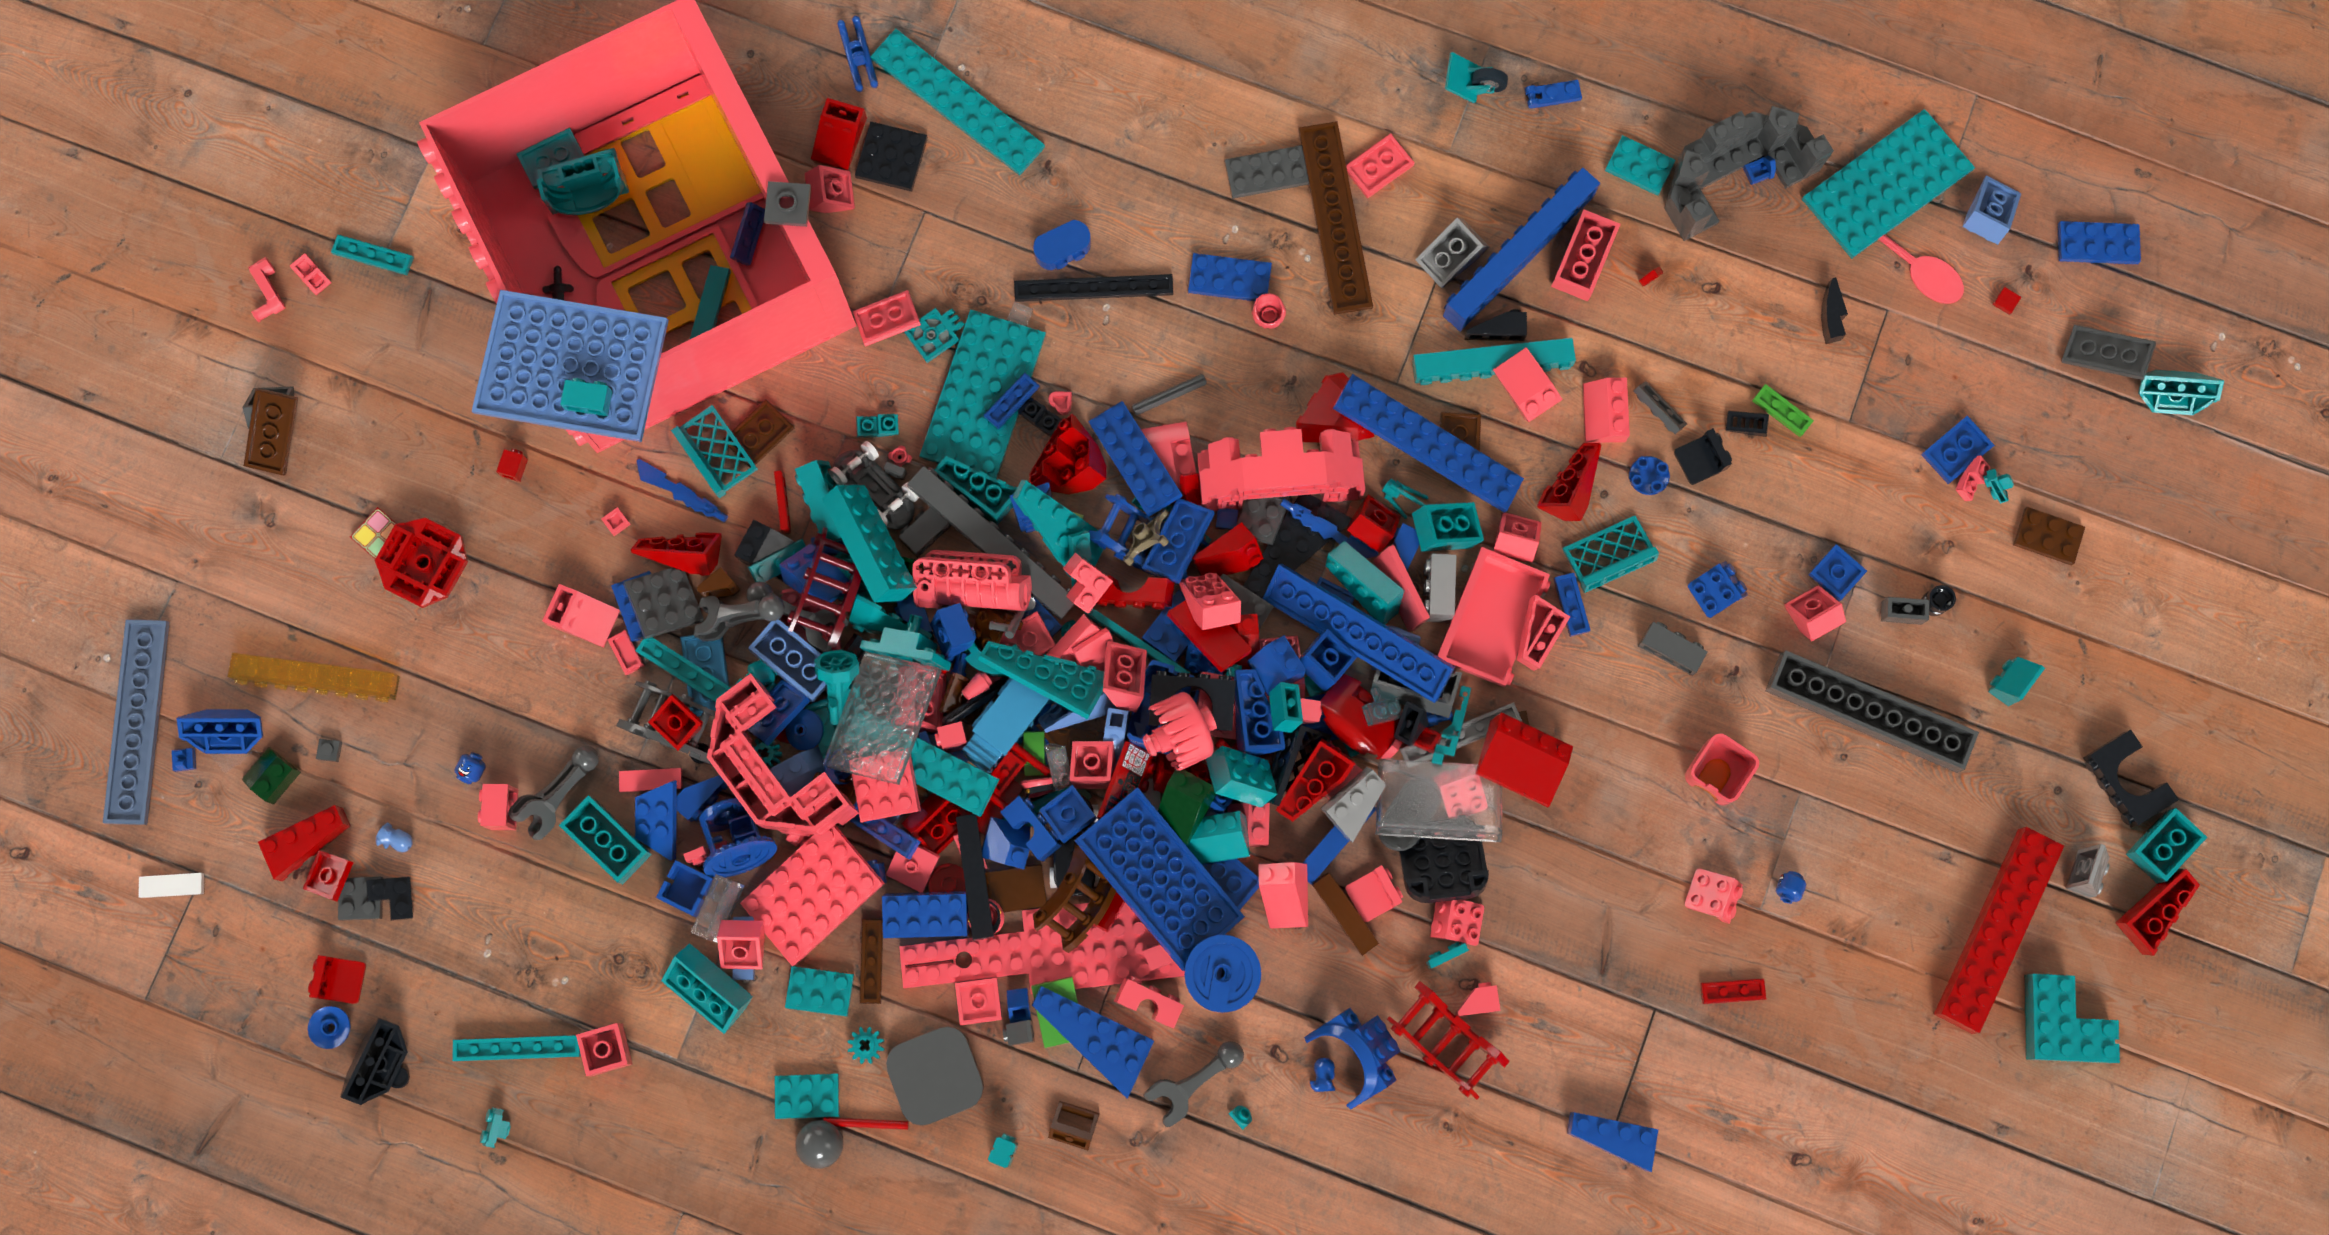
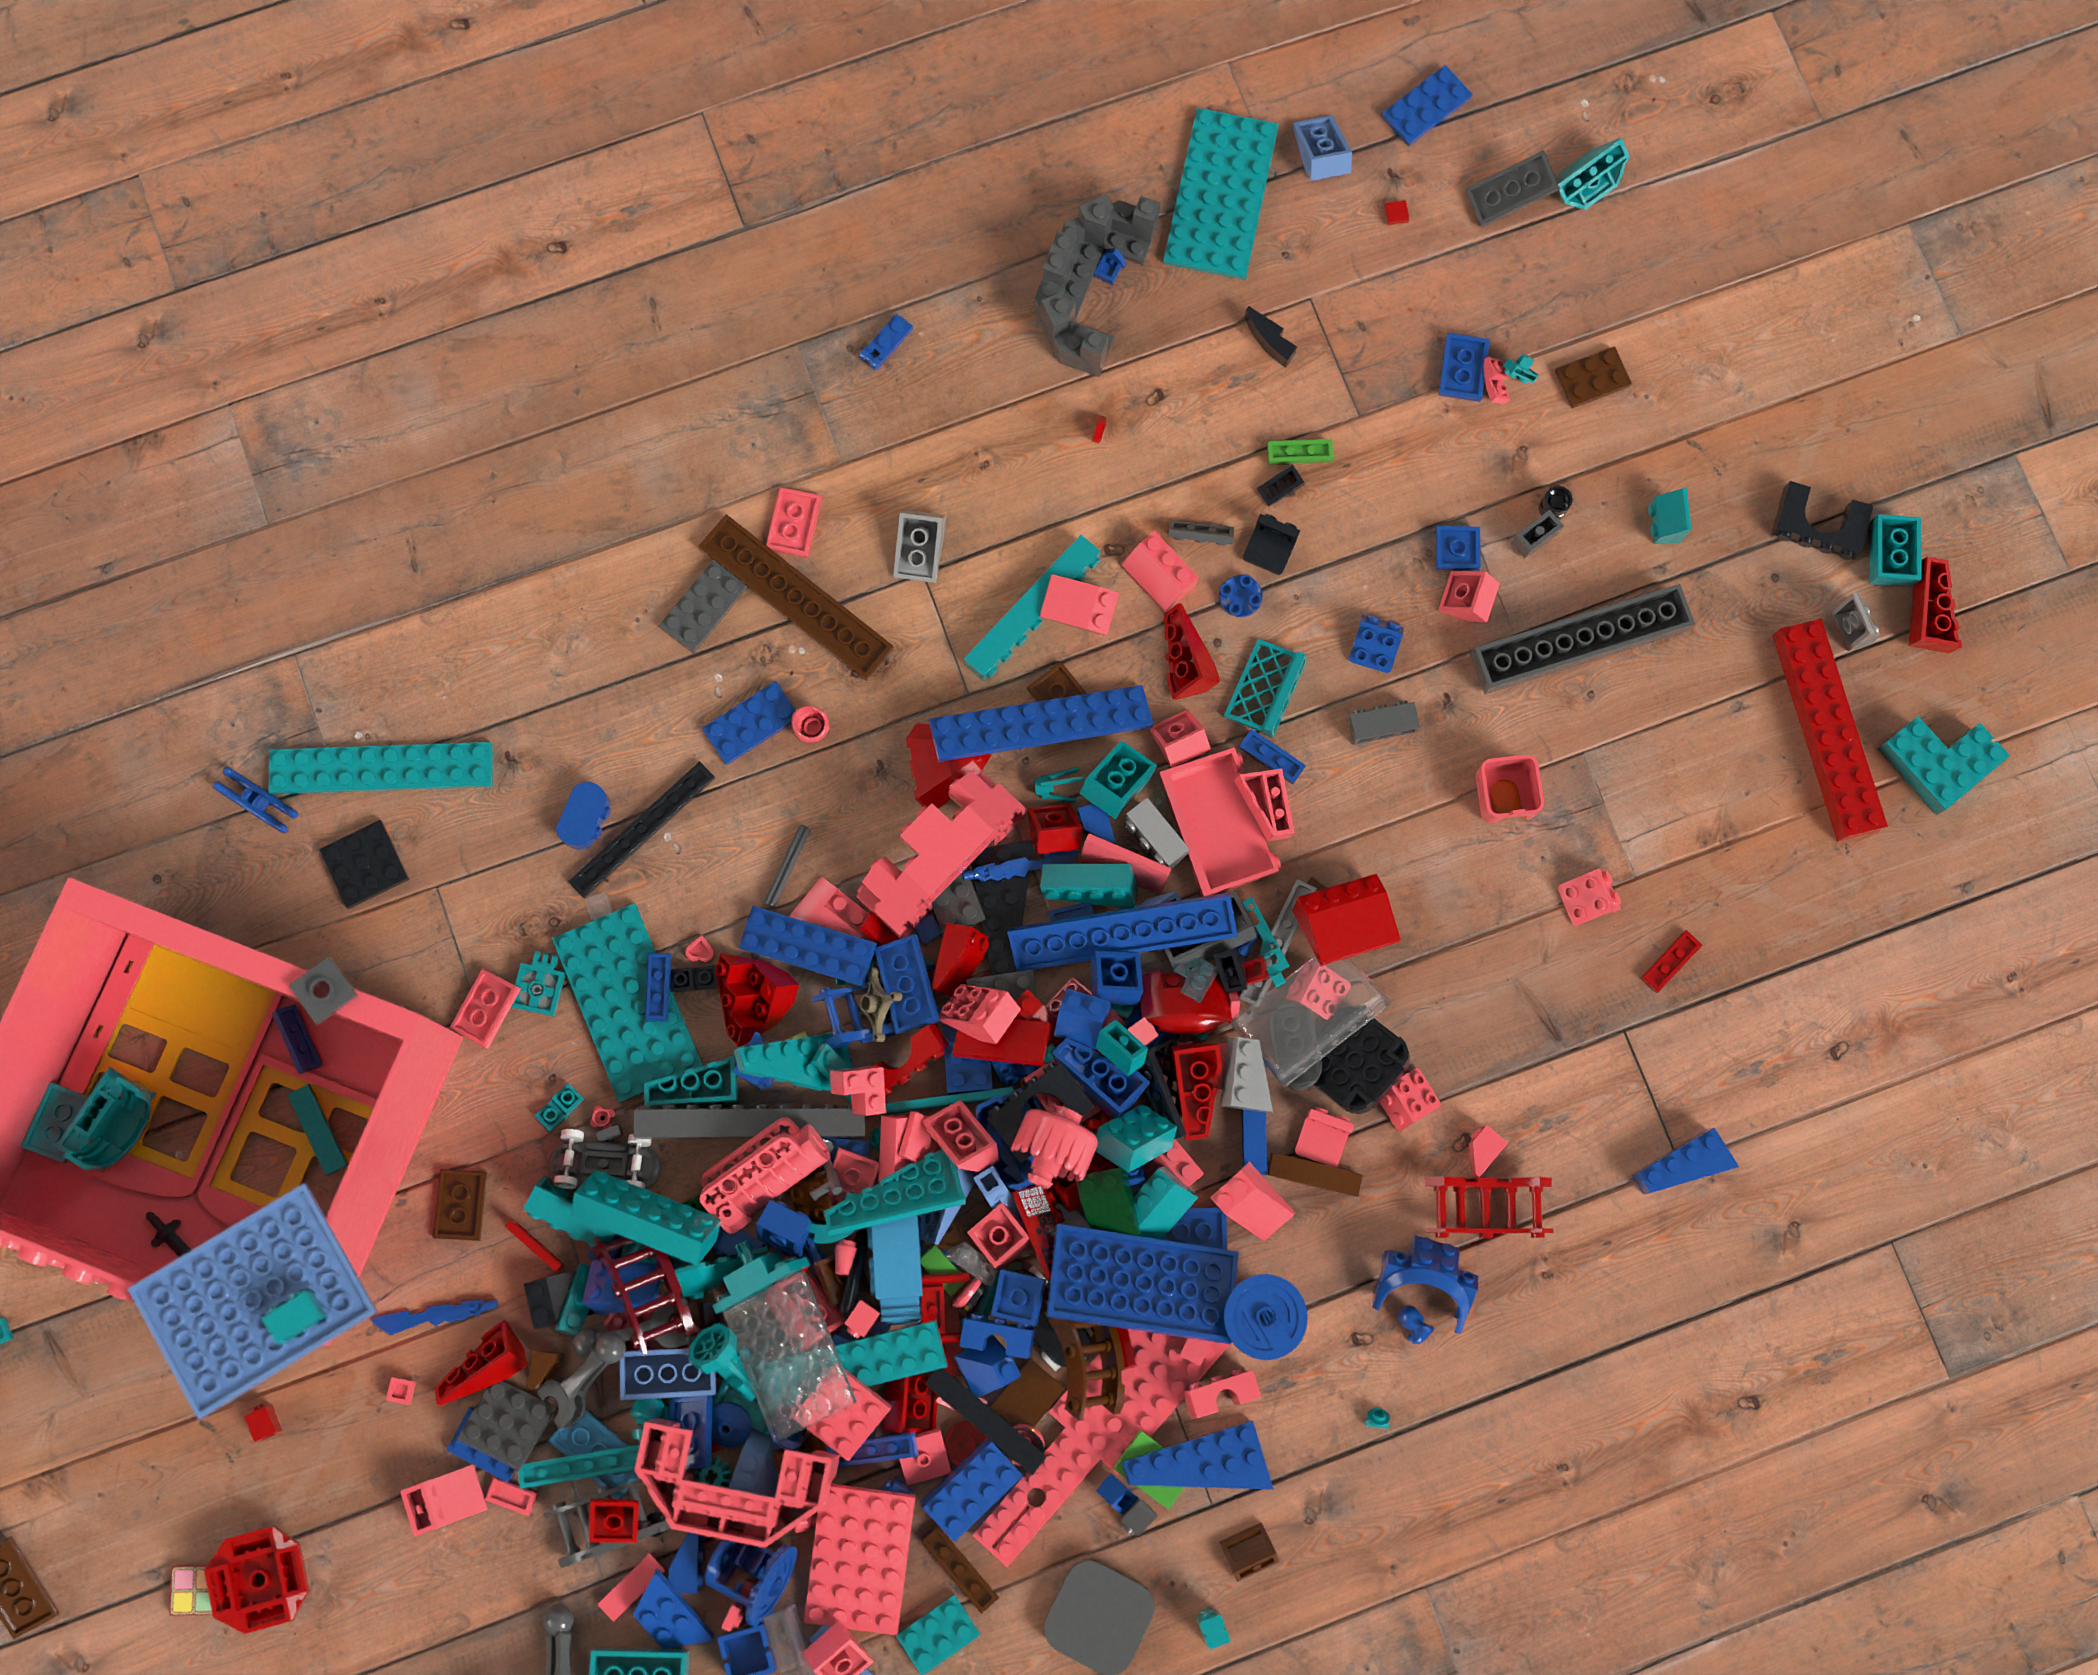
camera: 45 degrees left, 0 degrees up
(704, 464) = (431, 1273): teal fence -> none
(830, 189) = (335, 937): coral slope -> none
(838, 133) = (300, 884): red slope -> none
(874, 1045) = (1011, 1650): teal gear -> none
(923, 531) = (680, 1164): dark grey brick -> none
(978, 1001) = (1079, 1521): coral plate -> none
(1228, 1056) = (1312, 1446): dark grey piece -> none
(1454, 951) = (1428, 1128): teal plate -> none
(1470, 79) = (807, 387): teal plate -> none
(1504, 327) = (1019, 569): black slope -> none
(1521, 249) = (973, 495): blue brick -> none
(1585, 255) = (1031, 456): coral brick -> none
(1640, 165) = (1009, 343): teal plate -> none
(1791, 887) = (1643, 837): blue head -> none
(1930, 275) = (1319, 241): coral piece -> none

